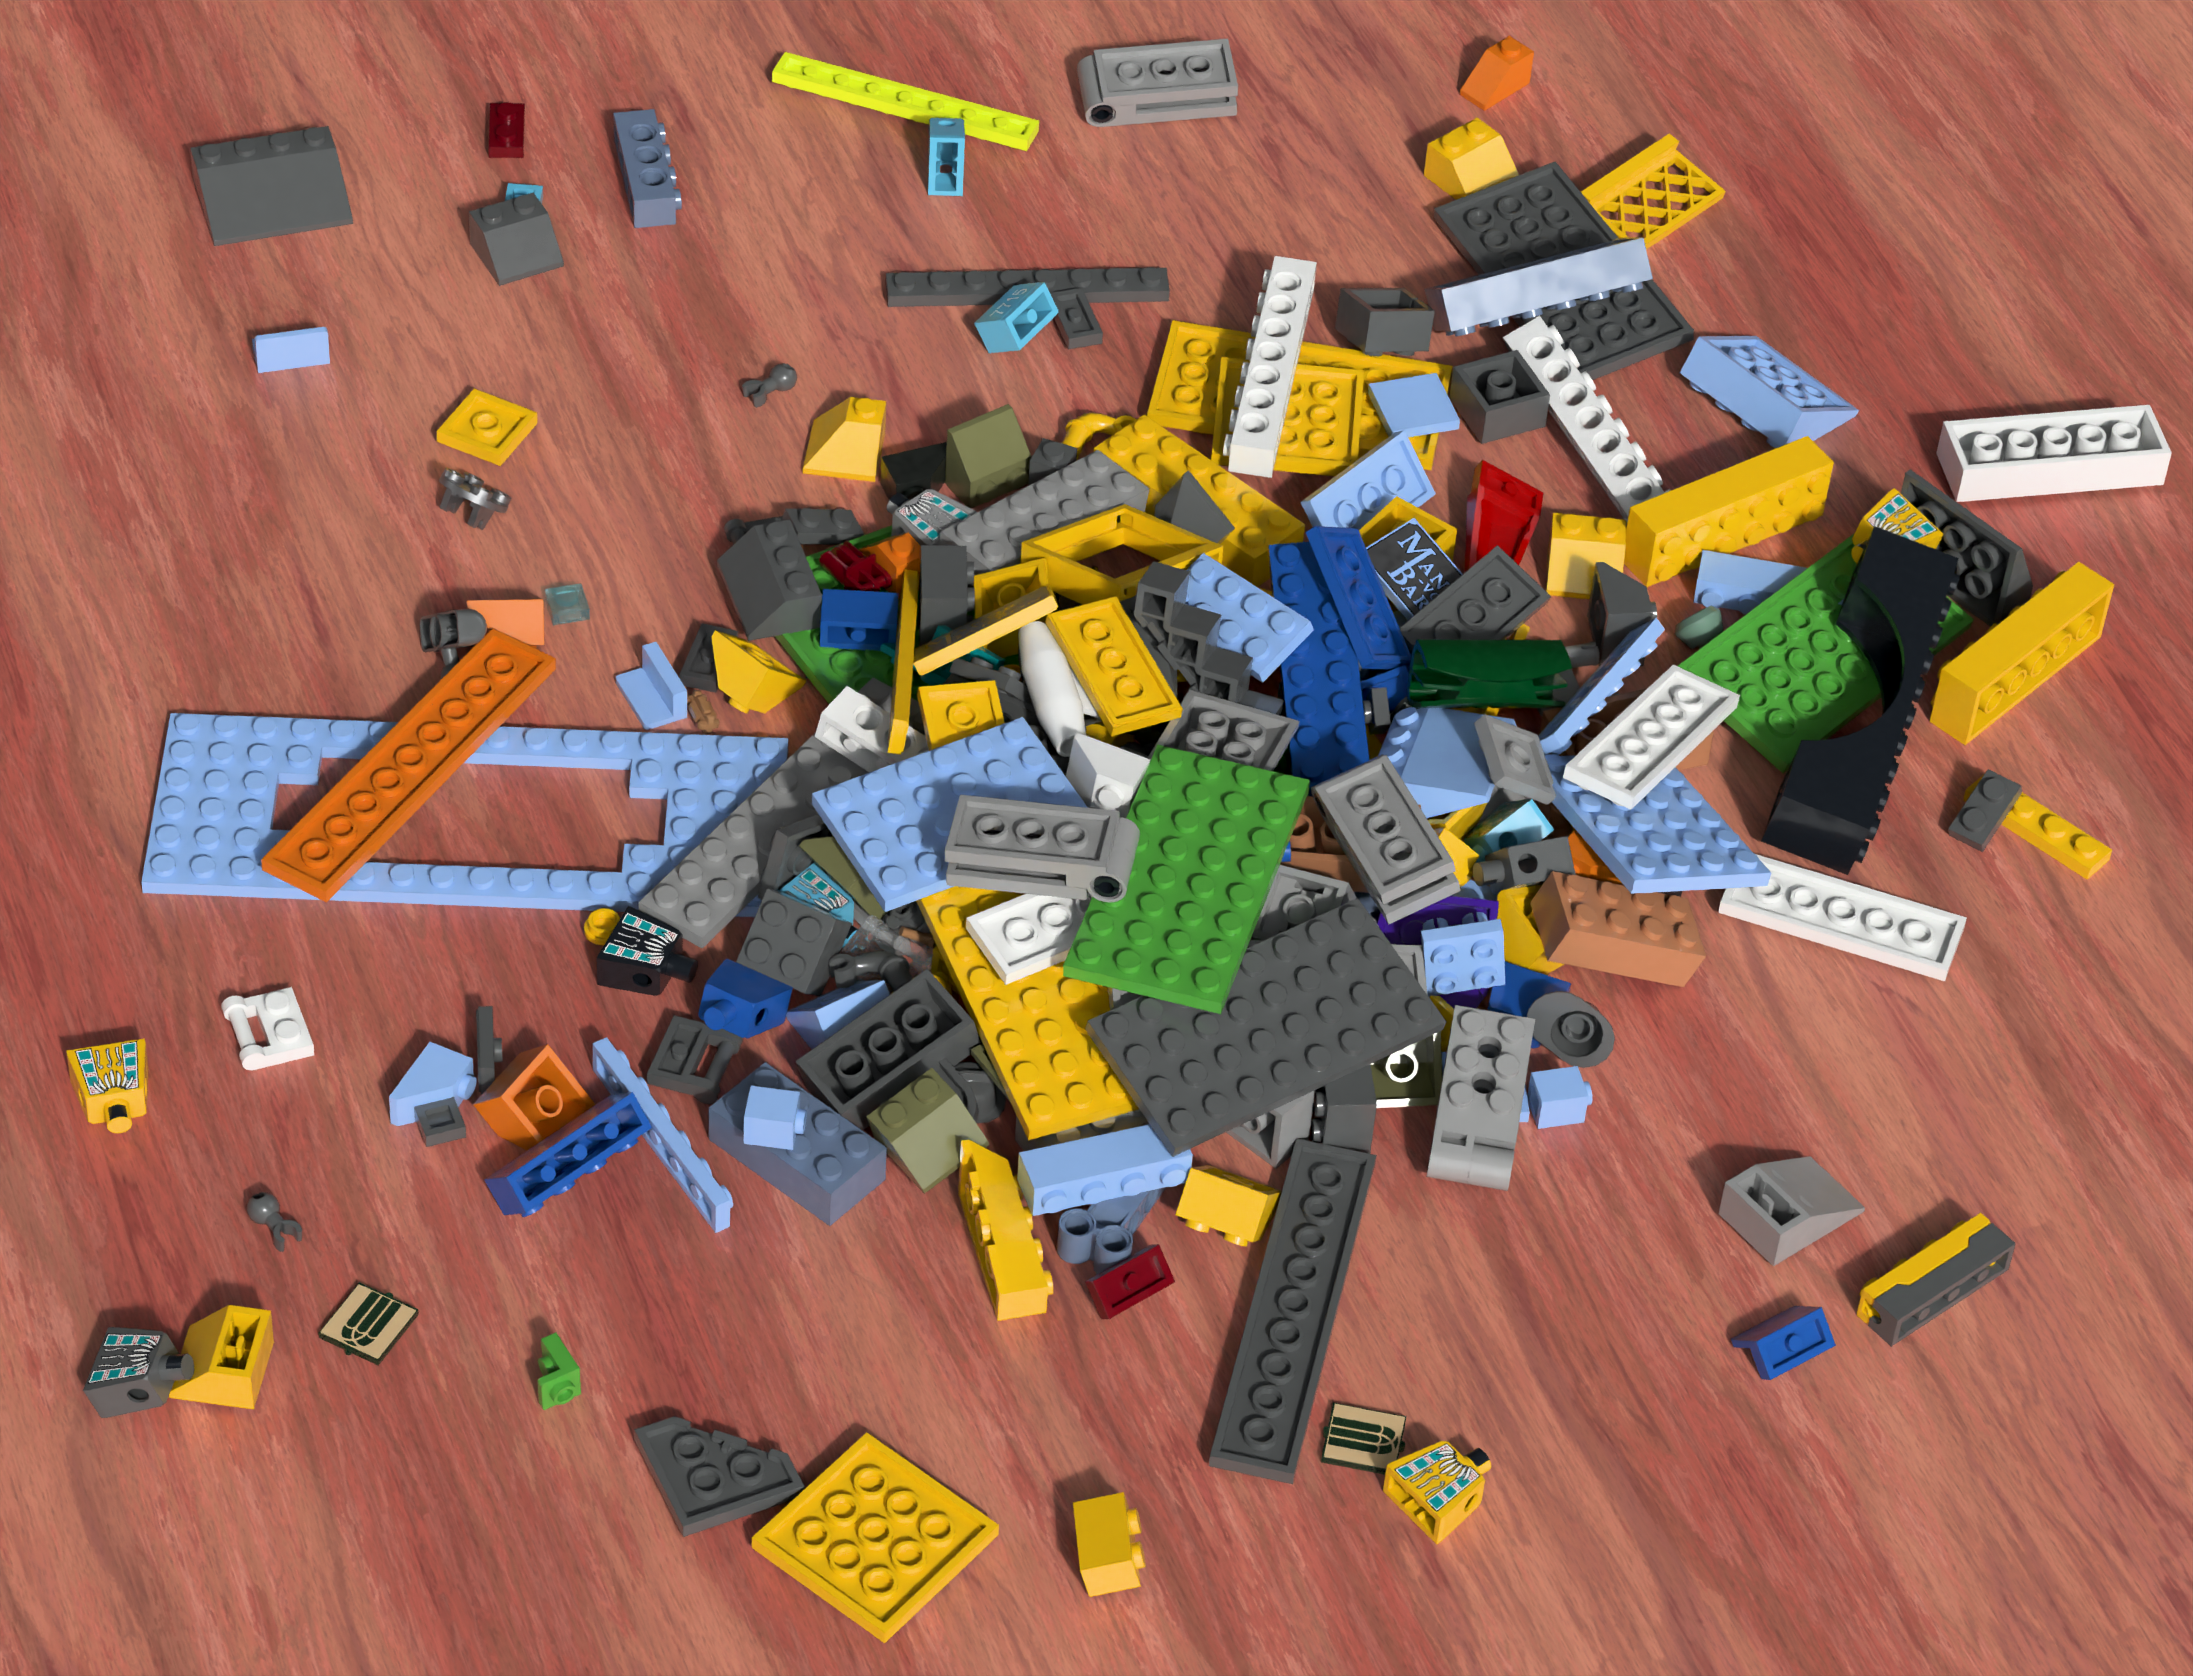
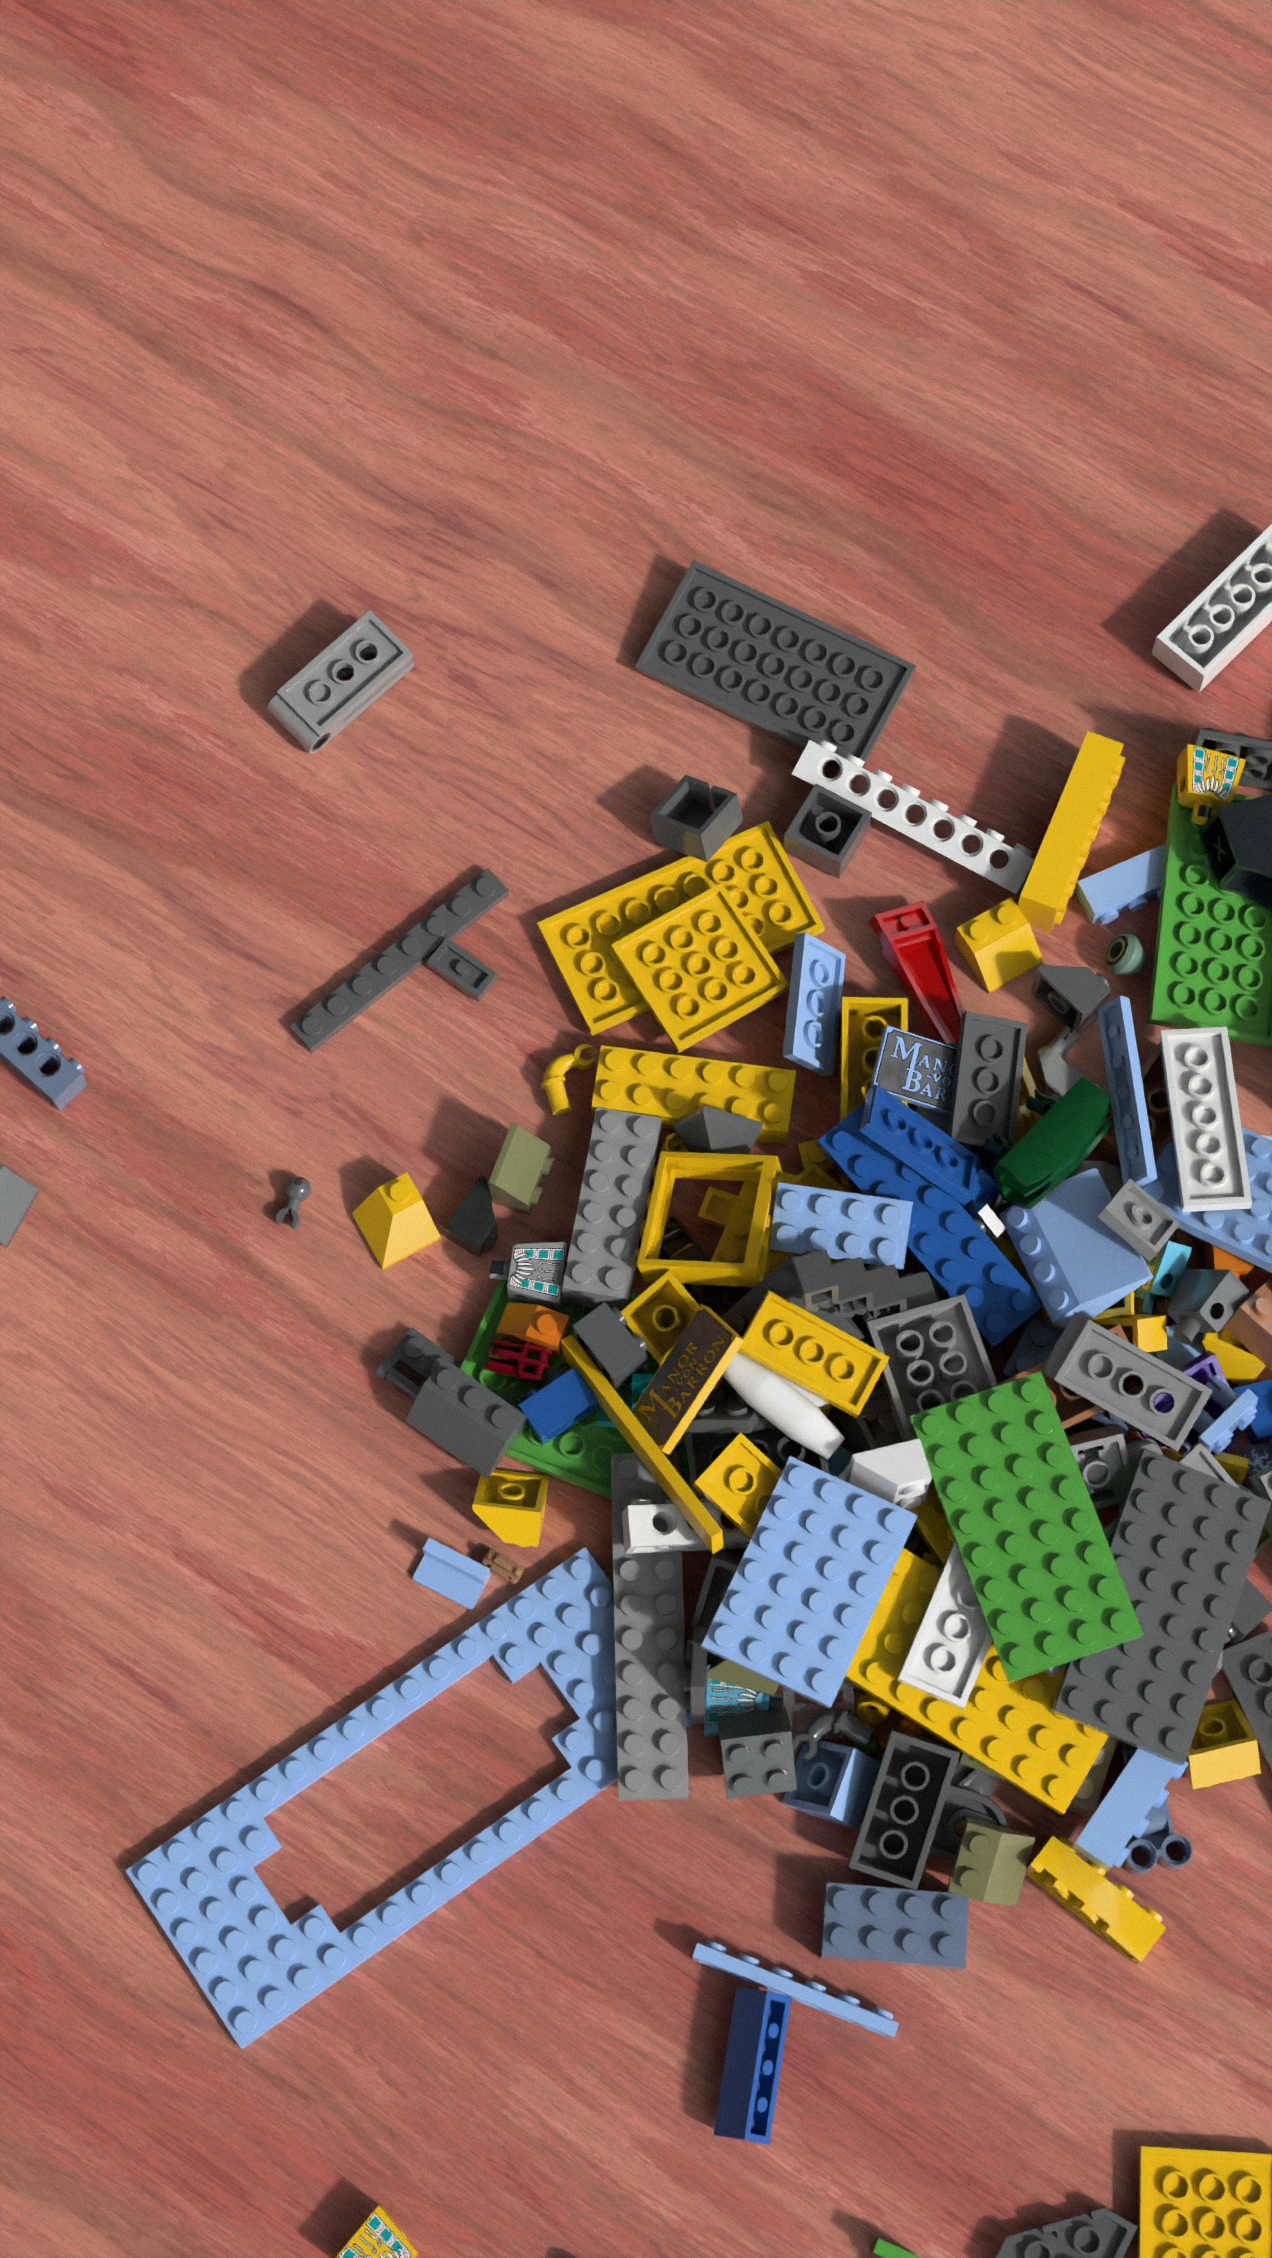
camera: 30 degrees left, 25 degrees up
(280, 1023) = (449, 2098): white plate -> none
(408, 765) = (350, 1796): orange plate -> none
(432, 1078) = (605, 2072): light blue slope -> none
(440, 1122) = (634, 2100): dark grey plate -> none
(450, 631) = (281, 1647): dark grey piece -> none
(470, 488) = (173, 1487): flat silver plate -> none
(487, 427) = (122, 1406): yellow plate -> none
(488, 1048) = (615, 2009): dark grey plate -> none
(515, 618) = (297, 1588): orange slope -> none
(532, 1098) = (686, 2032): orange slope -> none
(567, 604) = (321, 1535): clear light blue plate -> none
(600, 925) = (599, 1827): yellow plate -> none
(643, 955) = (652, 1834): black torso -> none
(681, 1054) = (748, 1903): dark grey plate -> none
(699, 667) = (459, 1500): flat silver plate -> none
(743, 1000) = (756, 1830): blue torso -> none
(773, 1117) = (888, 1944): light blue brick -> none
(823, 525) = (448, 1321): dark grey plate -> none
(903, 100) = (162, 833): neon yellow plate -> none
(946, 148) = (237, 866): medium azure torso -> none
(1016, 317) = (426, 1006): medium azure brick -> none
(1040, 849) = (955, 1578): light grey hinge -> none
(1049, 458) = (568, 1141): dark grey brick -> none
(1130, 1281) = (1204, 1869): dark red plate -> none
(1271, 367) = (618, 835): white brick -> none
(1414, 405) = (776, 886): light blue tile -> none
(1468, 160) = (627, 599): yellow slope -> none
(1499, 73) = (575, 488): orange slope -> none
(1538, 284) = (787, 709): brick -> none
(1631, 180) = (750, 526): yellow fence -> none
(1764, 389) = (999, 679): light blue slope -> none

